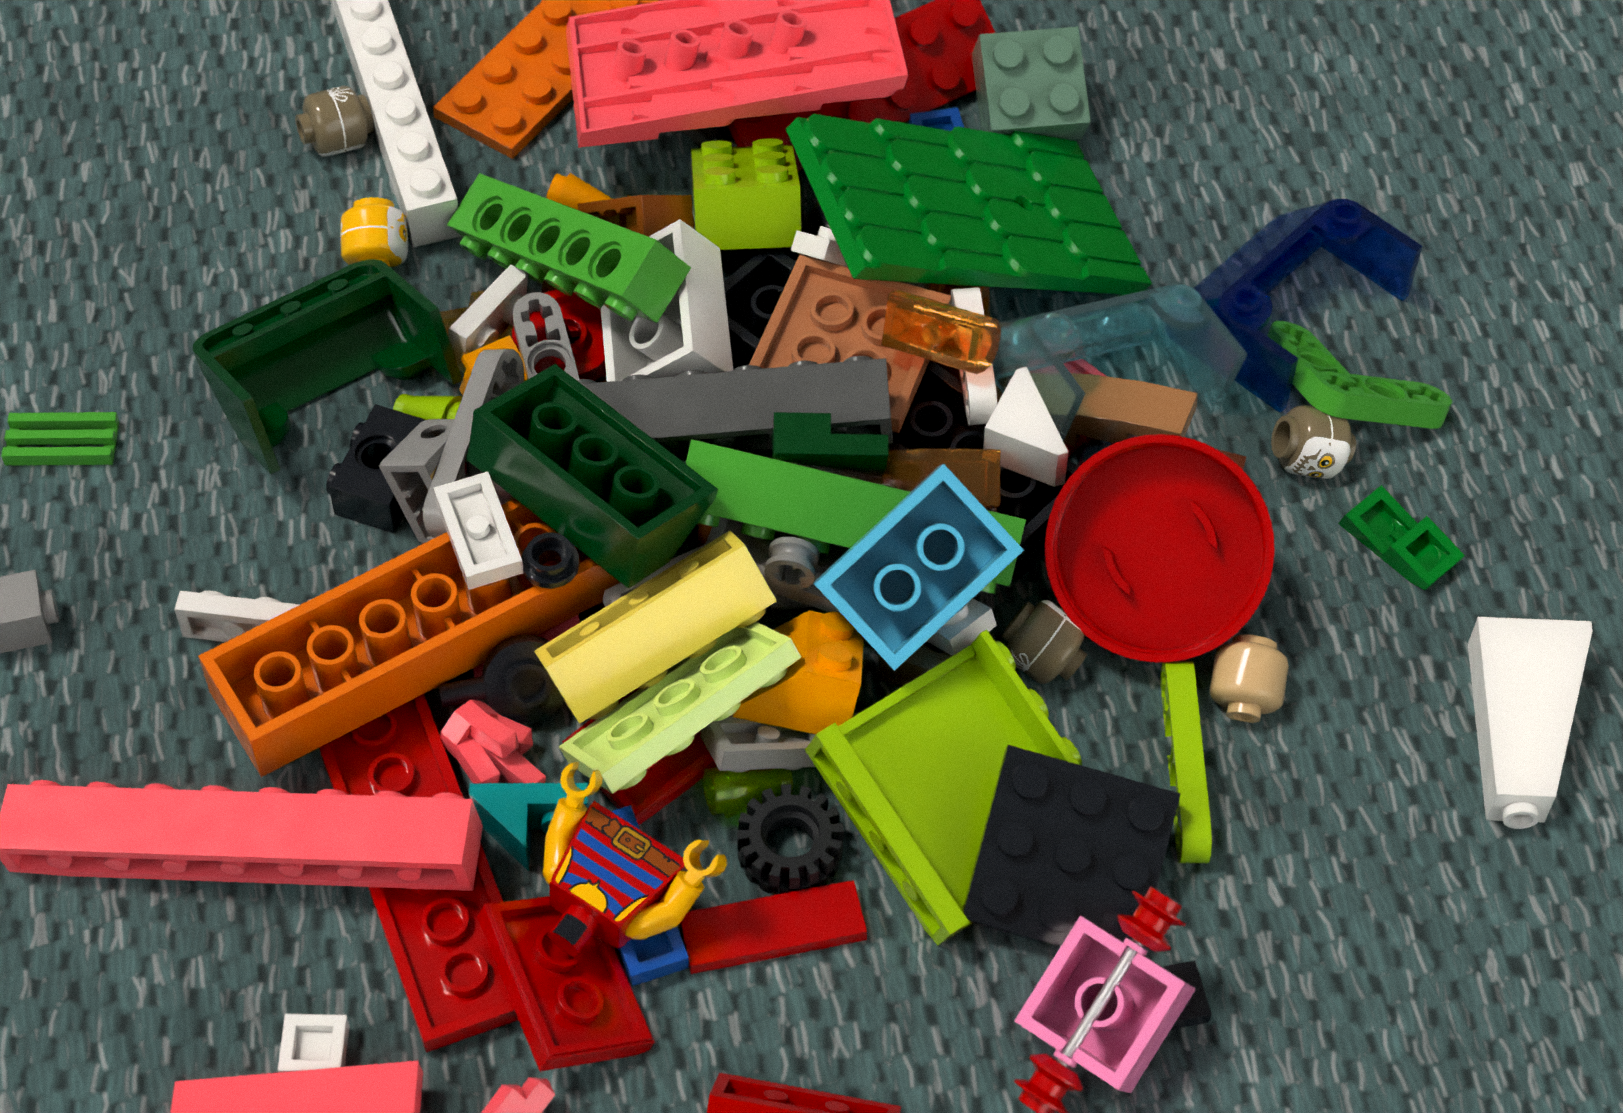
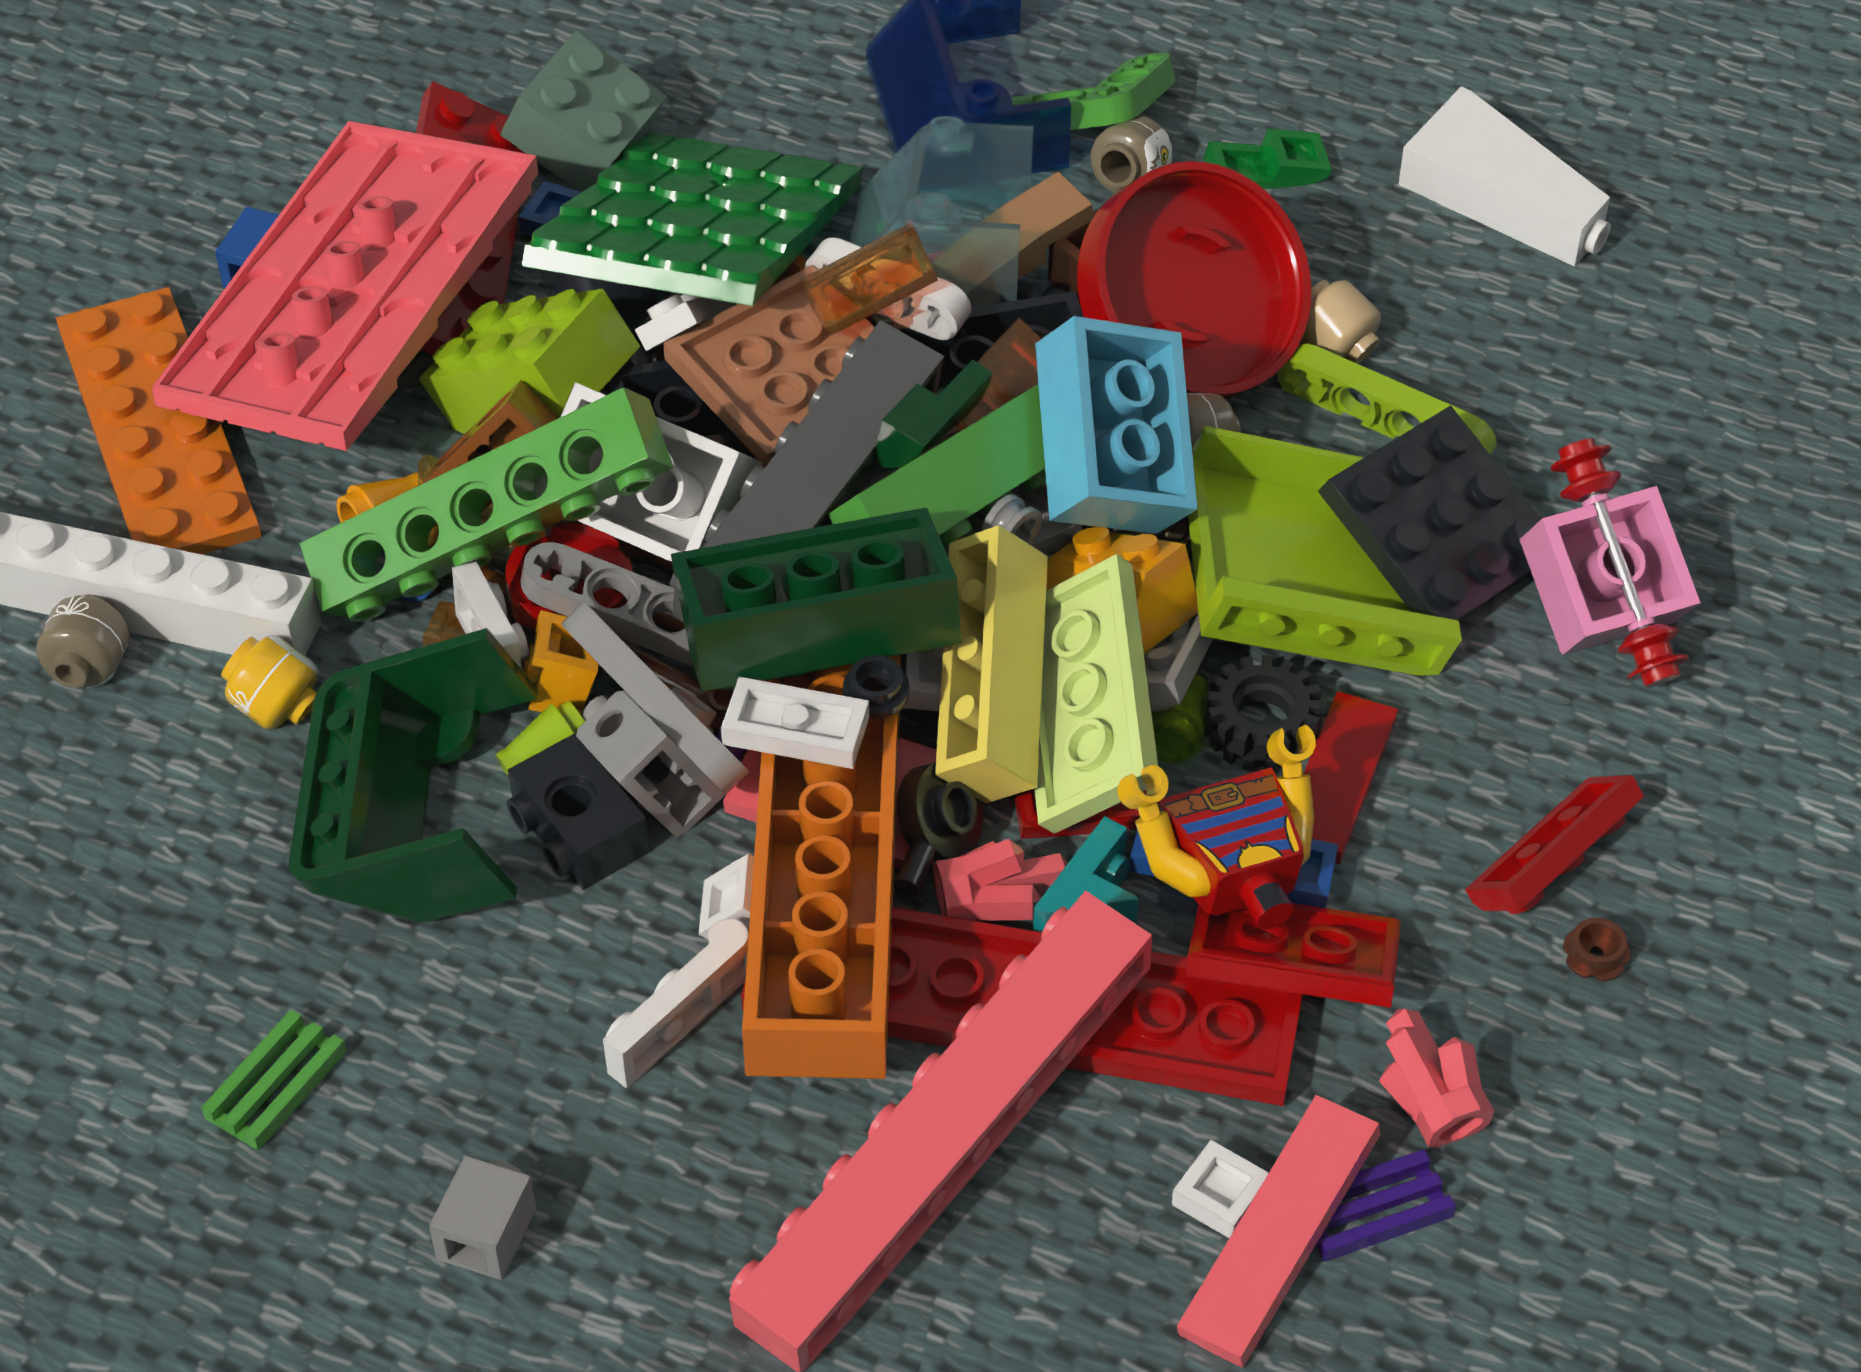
camera: 55 degrees left, 5 degrees down
(1026, 433) = (1008, 290): white slope -> none

